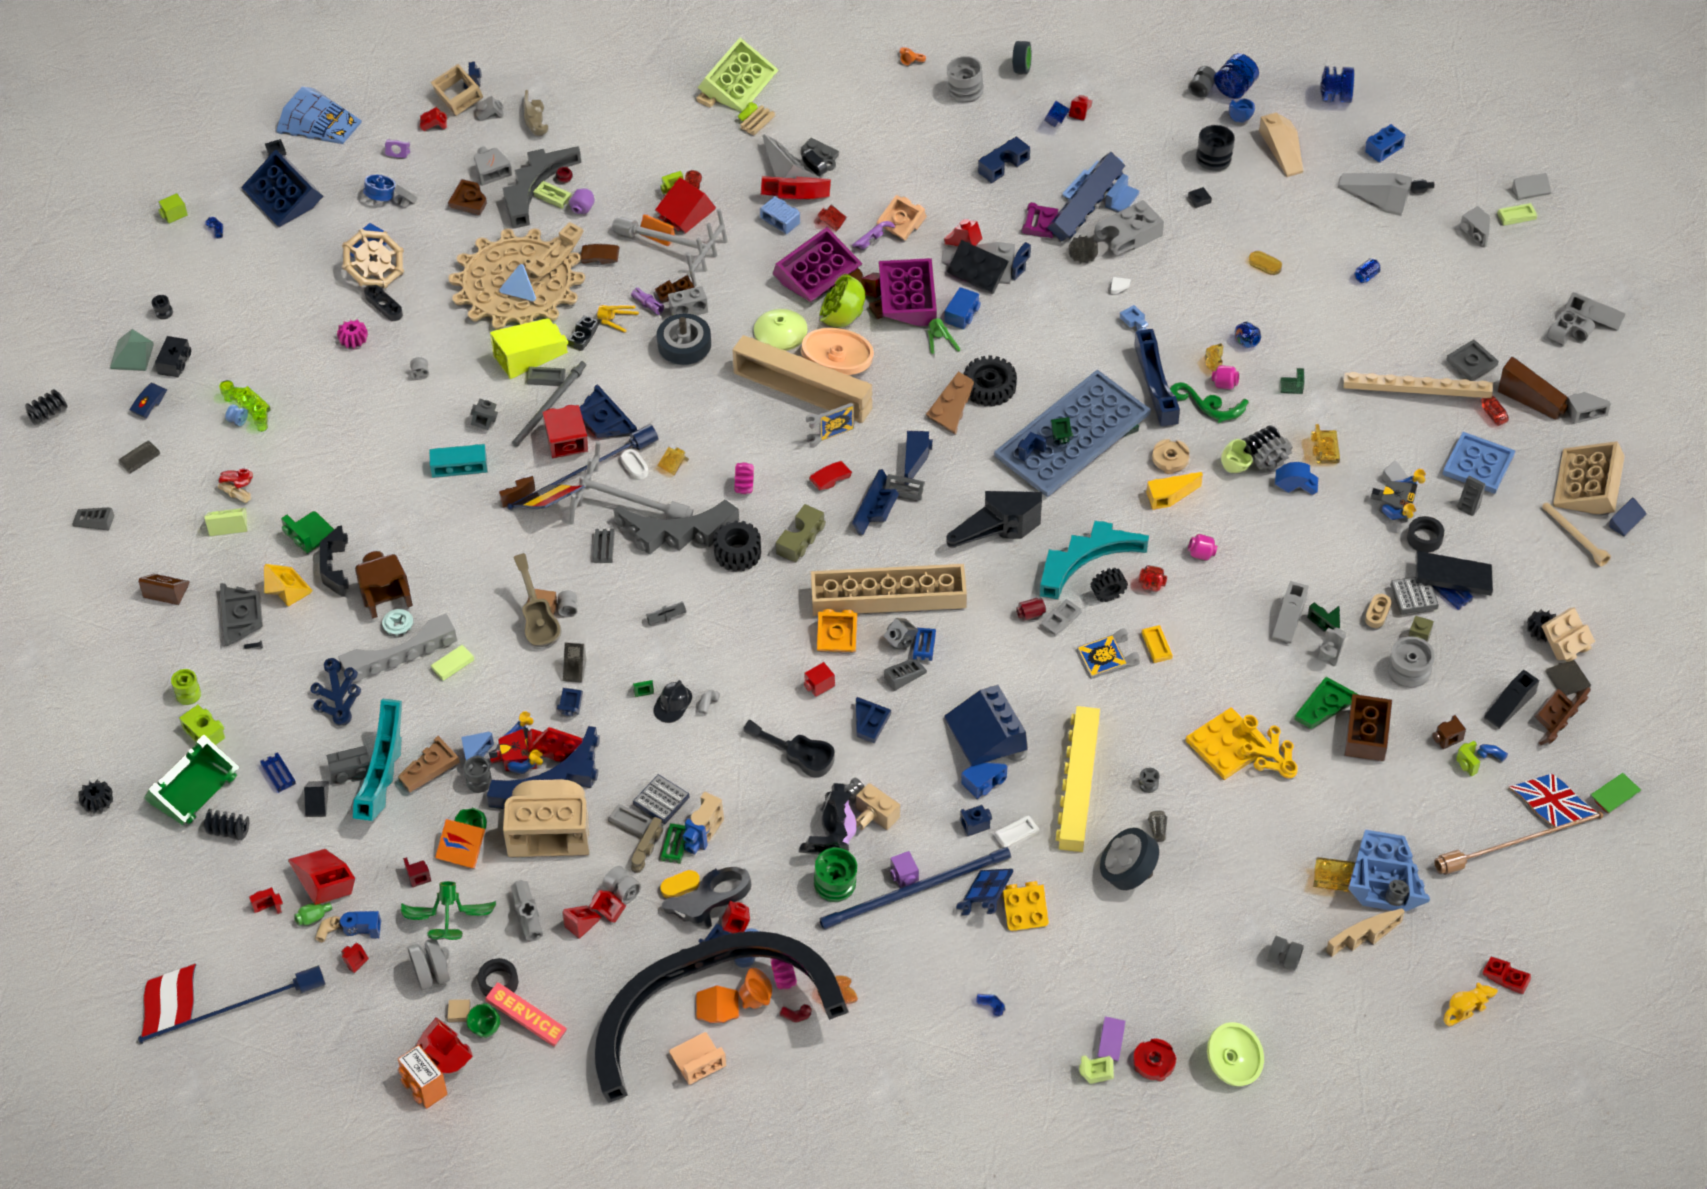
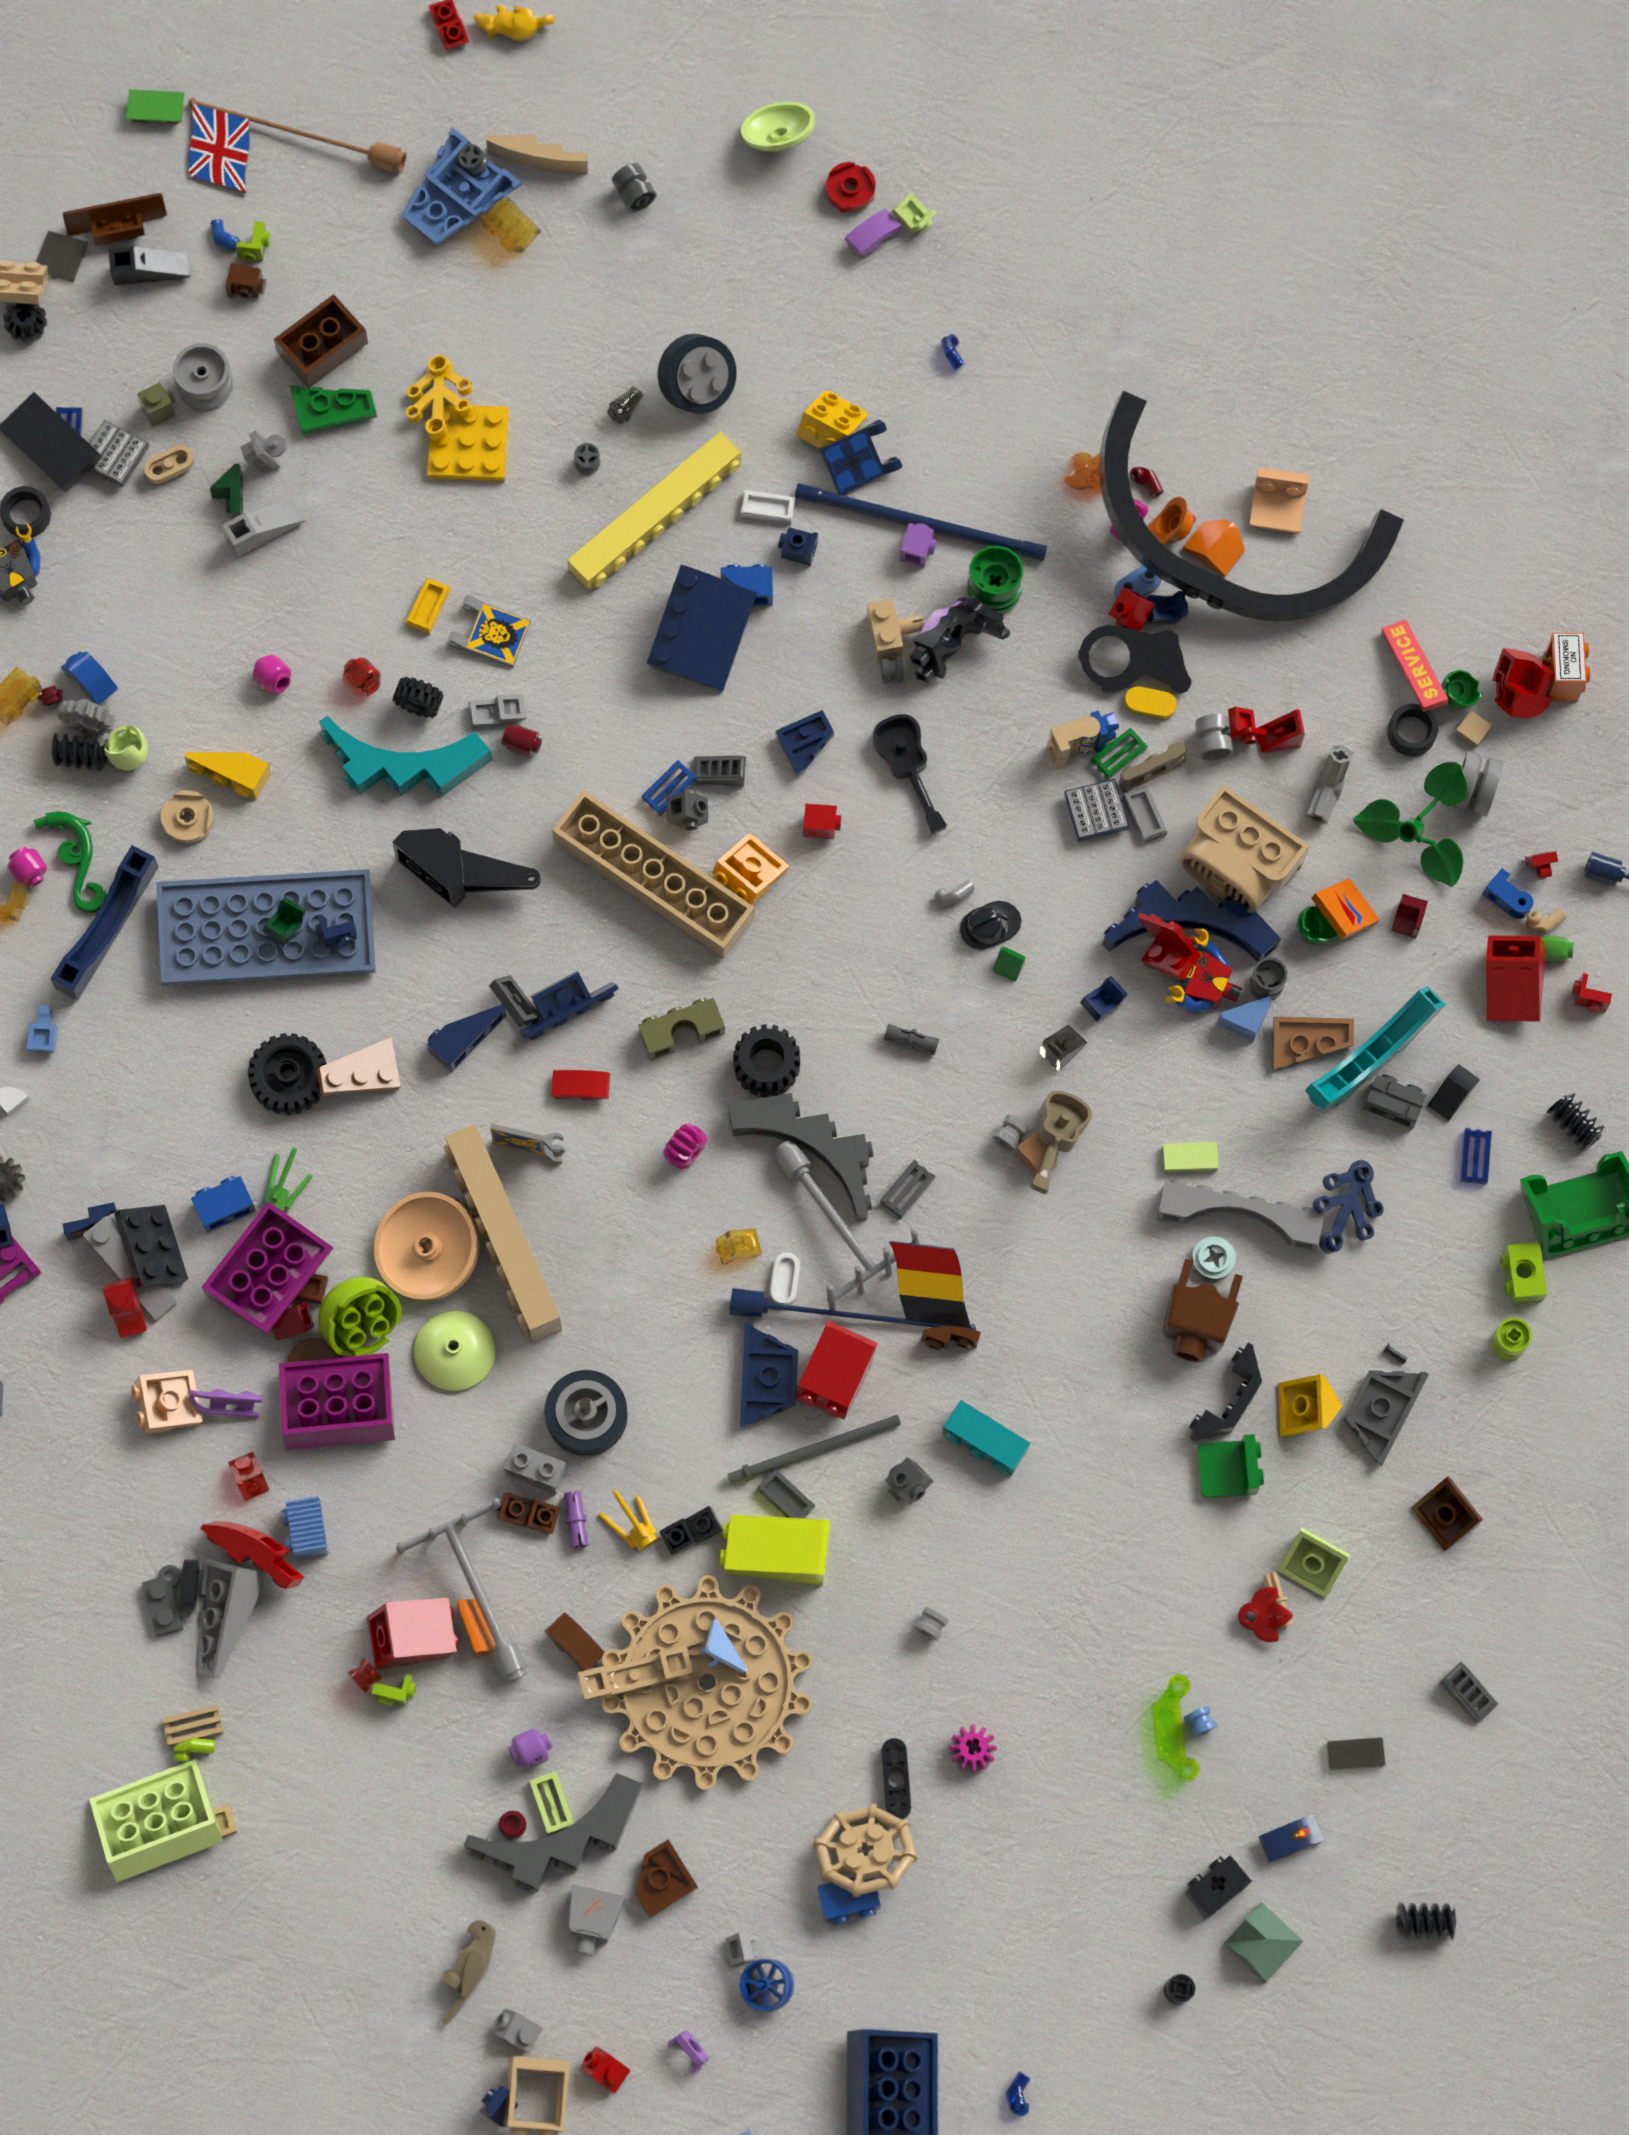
camera: 145 degrees left, 20 degrees up
(1307, 457) = (50, 696): none -> dark red plate

